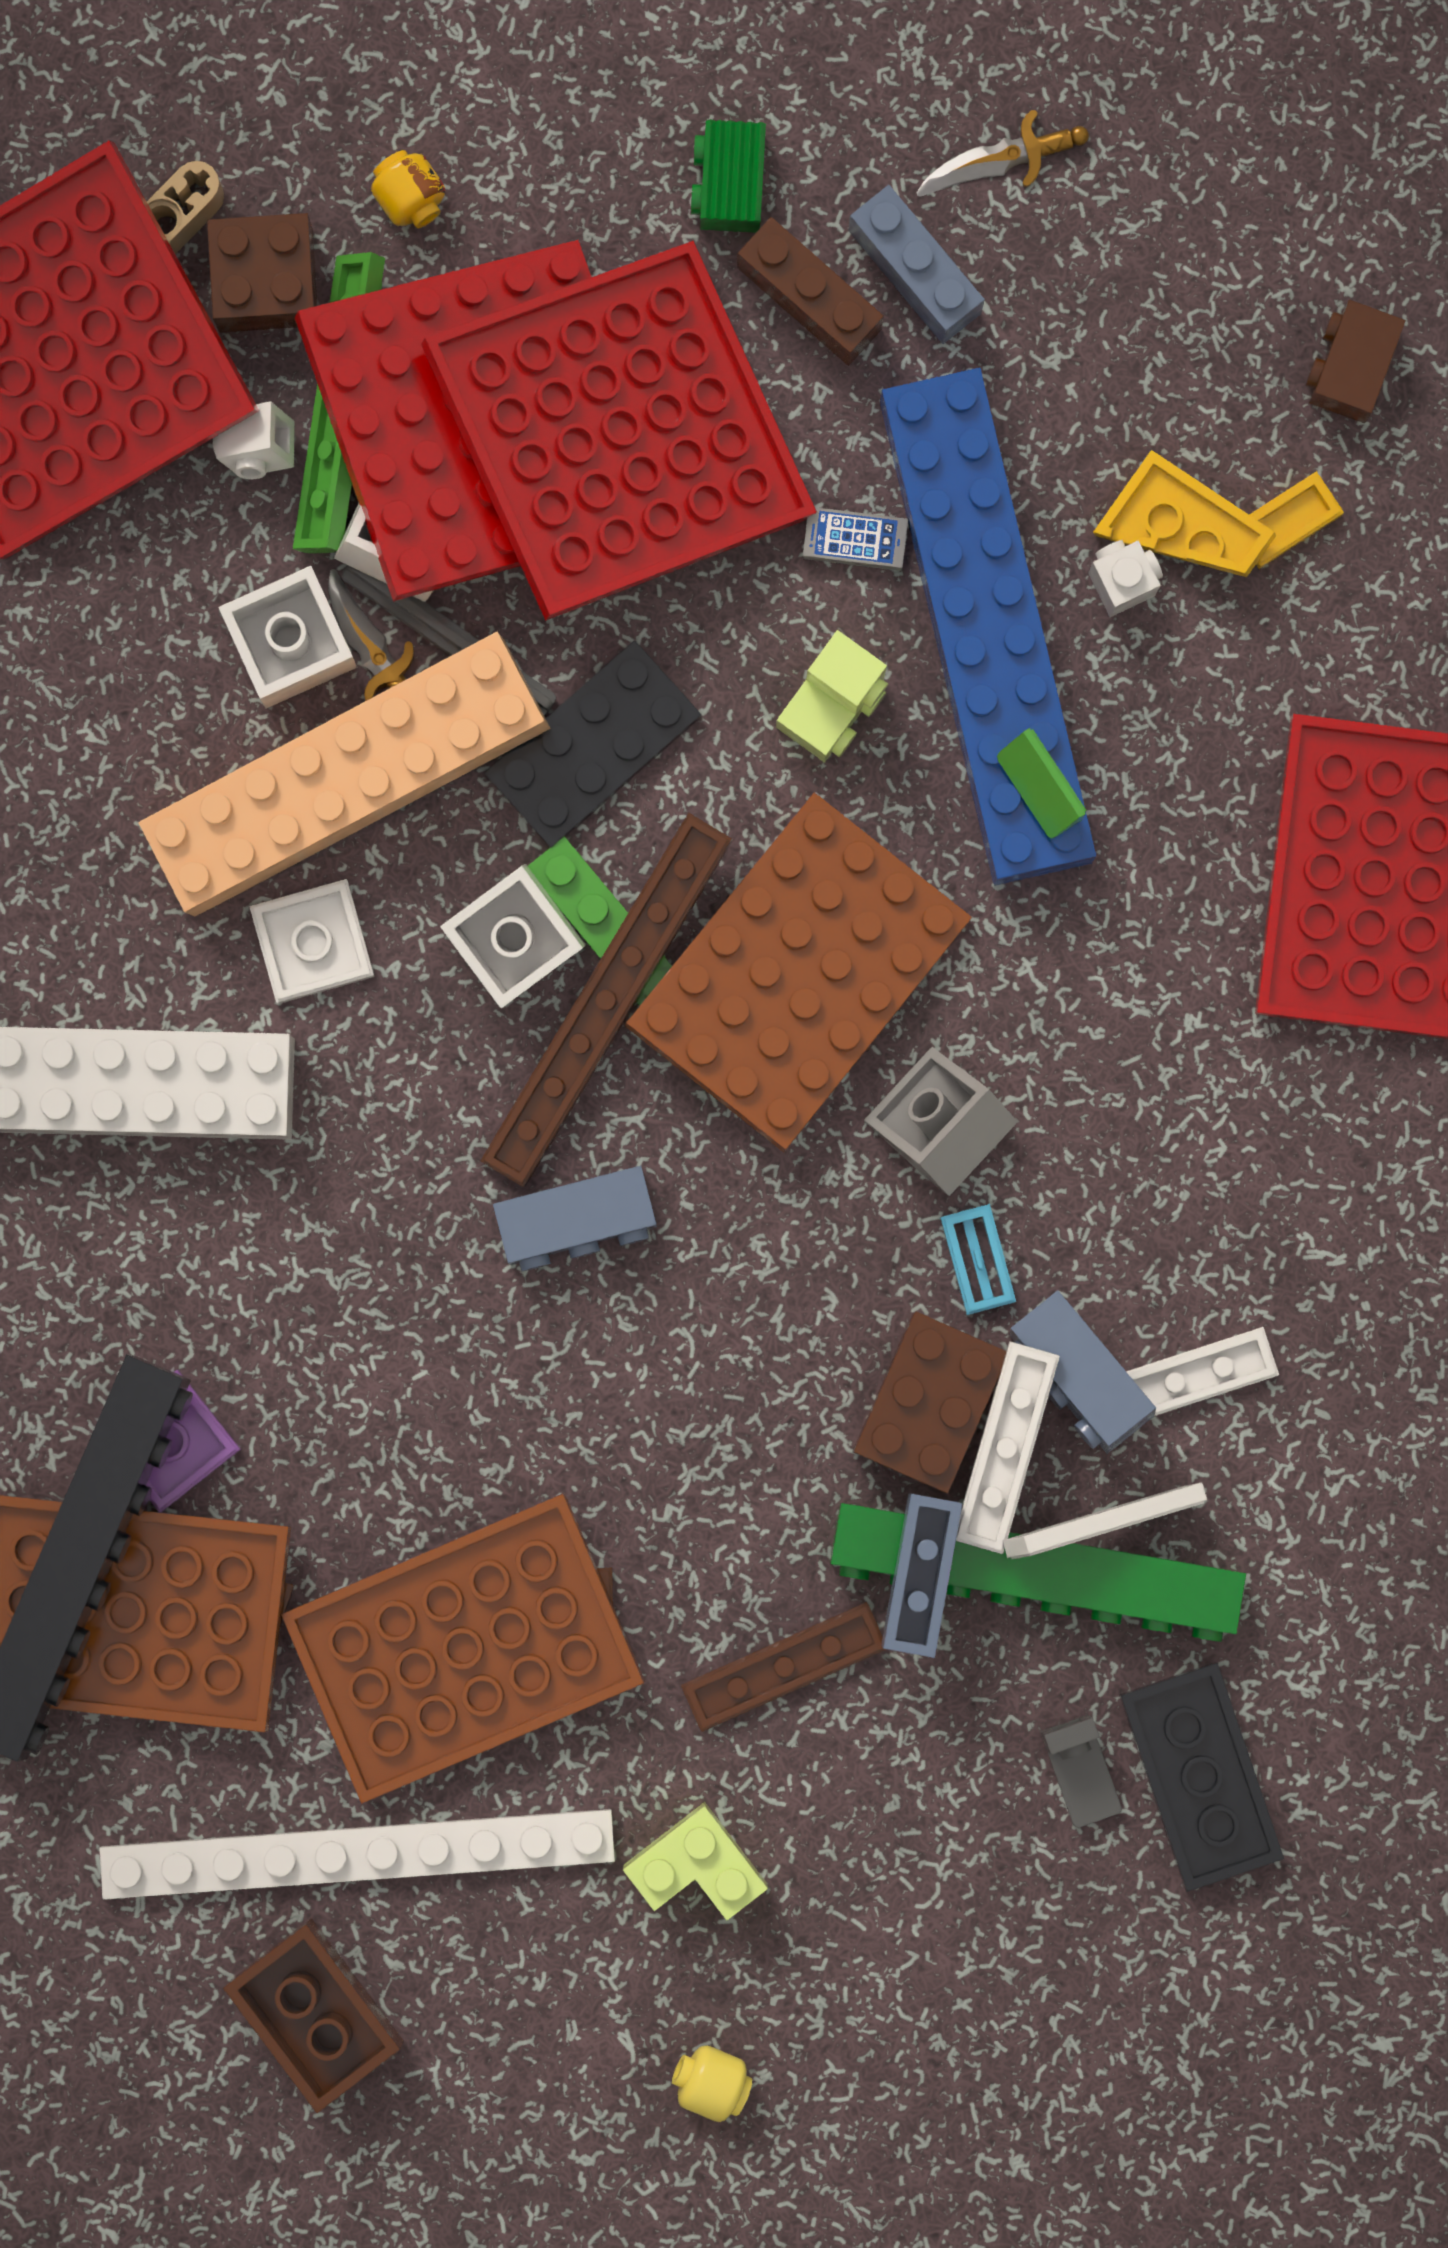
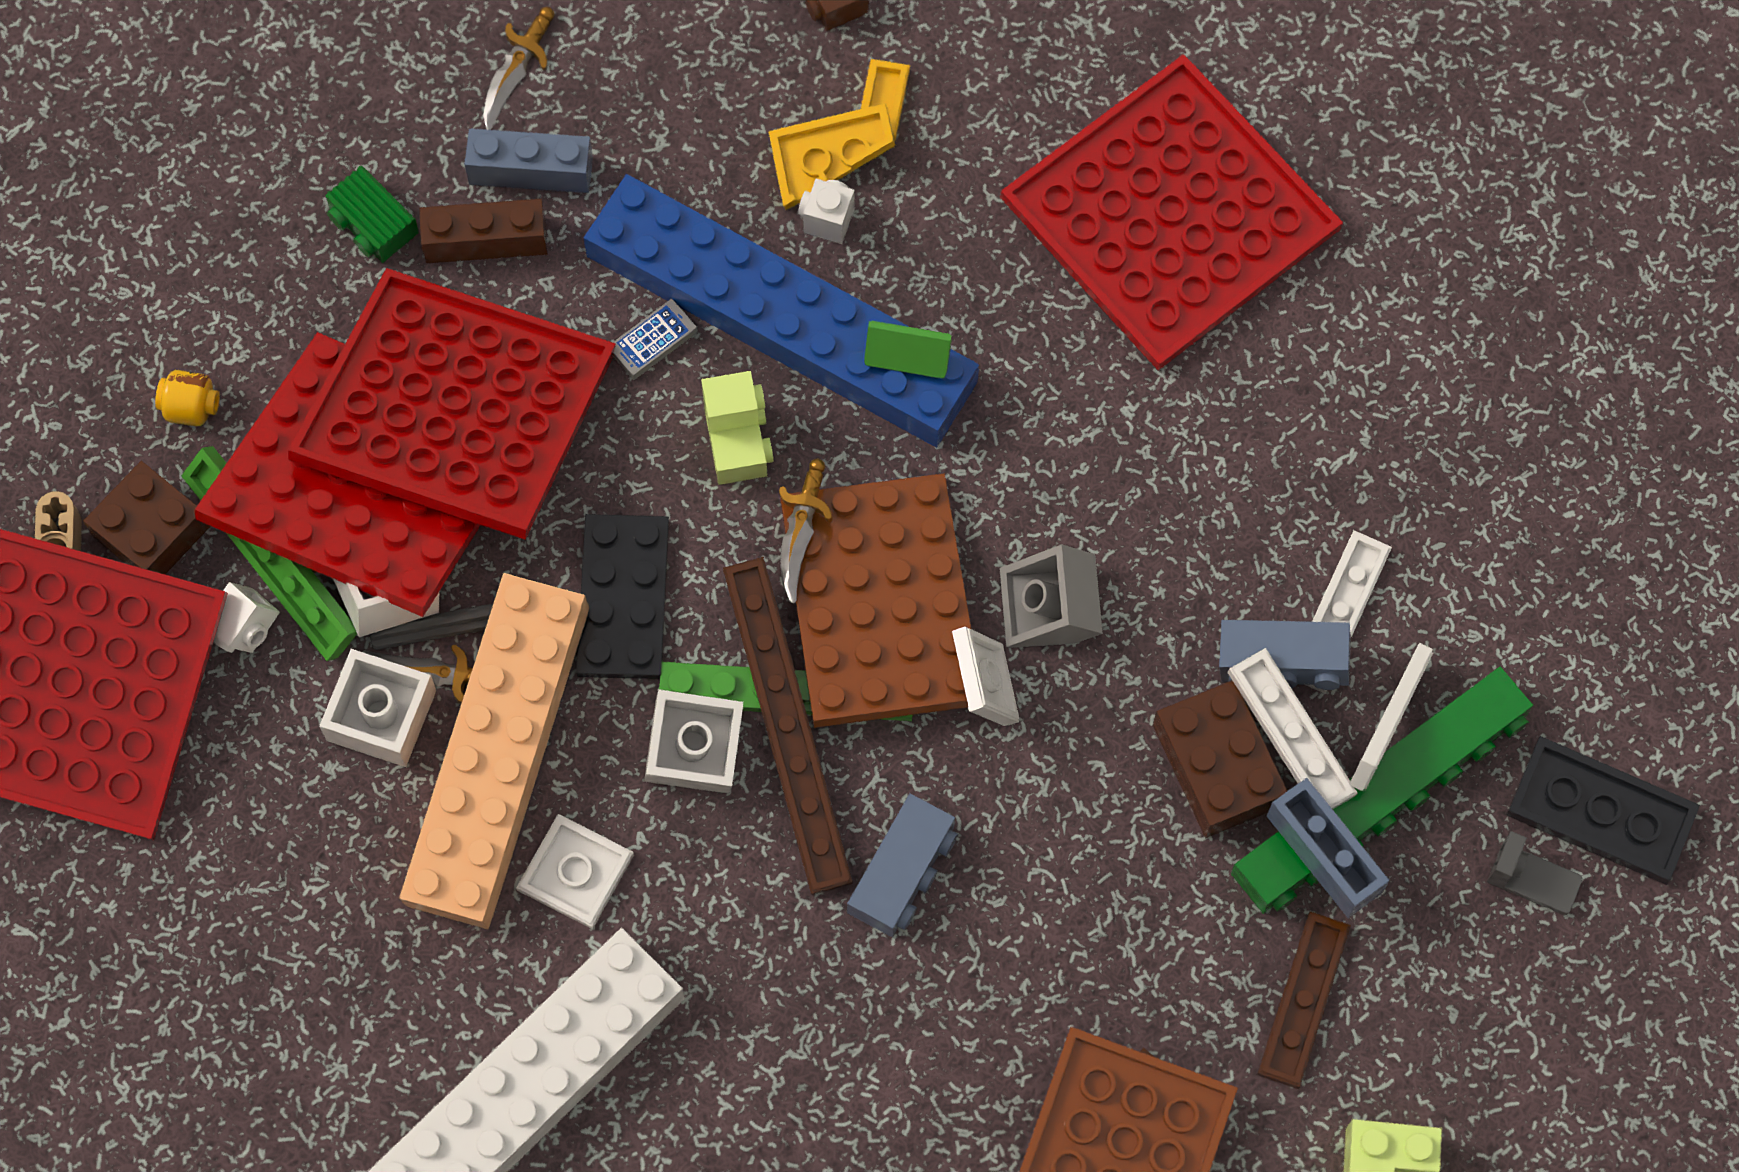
camera: 45 degrees left, 15 degrees down
(795, 841) = (800, 525): none -> piece
(809, 1132) = (985, 676): none -> white tile
(988, 1301) = (1148, 670): medium azure tile -> none

